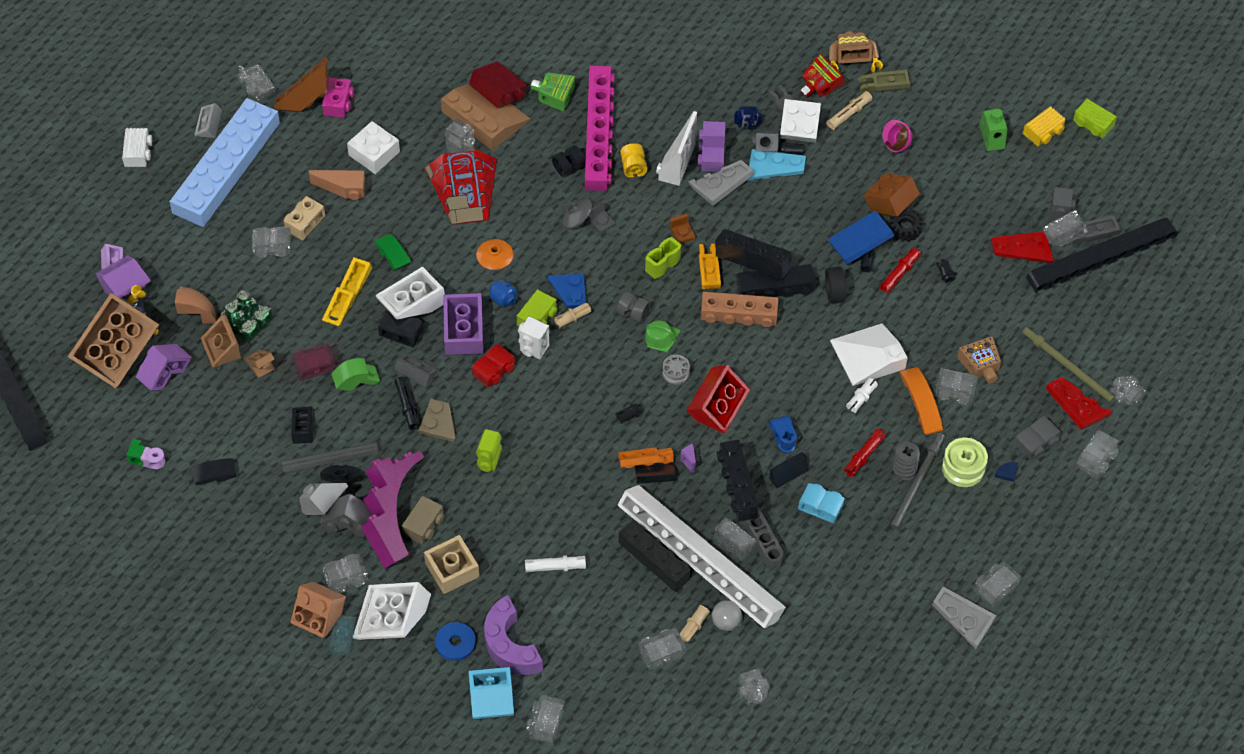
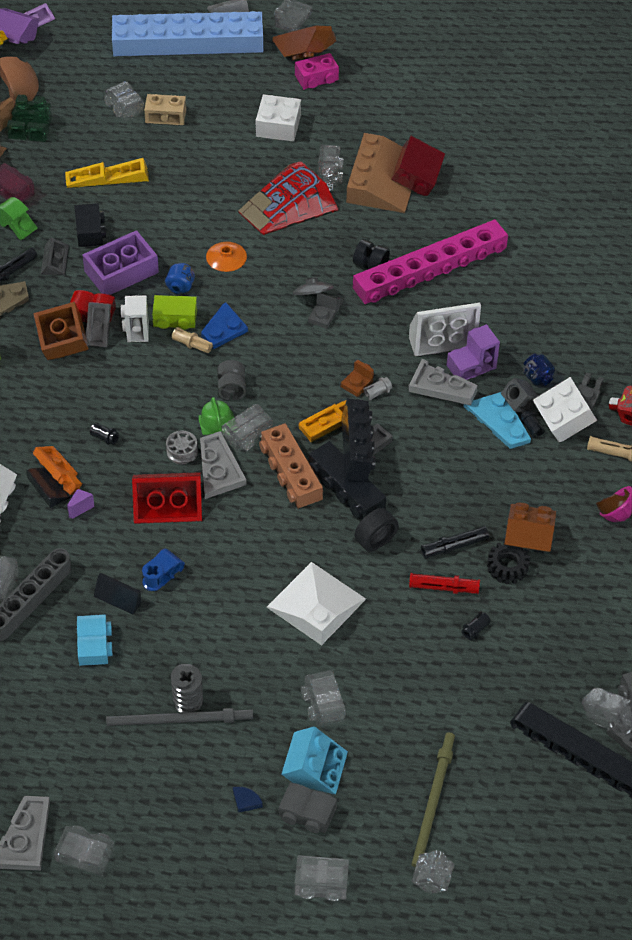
camera: 60 degrees right, 5 degrees down
(341, 182) = (225, 119): nougat slope -> none
(391, 248) = (171, 183): green slope -> none
(413, 295) = (125, 212): white slope -> none
(512, 393) = (61, 331): none -> dark orange brick
(520, 366) = (98, 324): none -> flat silver plate
(555, 90) = (451, 212): bright green torso -> none
(633, 160) = (410, 303): yellow wheel -> none
(663, 257) = (306, 376): lime brick -> none
(686, 319) = (246, 428): none -> clear brick
(698, 221) = (378, 388): none -> light grey pin
(706, 352) = (219, 466): none -> light grey wing
(738, 480) = (60, 546): black brick -> none
(860, 458) = (183, 652): red pin -> none
(861, 237) = (455, 527): blue tile -> none
(861, 395) = (257, 618): white pin -> none
(923, 400) = (285, 675): orange slope -> none
(964, 462) = (224, 747): yellowish green wheel -> none
(981, 359) = (377, 708): medium nougat torso -> none
(1003, 416) = (314, 761): none -> medium azure slope
(1024, 246) = (563, 684): red wing -> none
(1077, 406) = (382, 830): red wing -> none

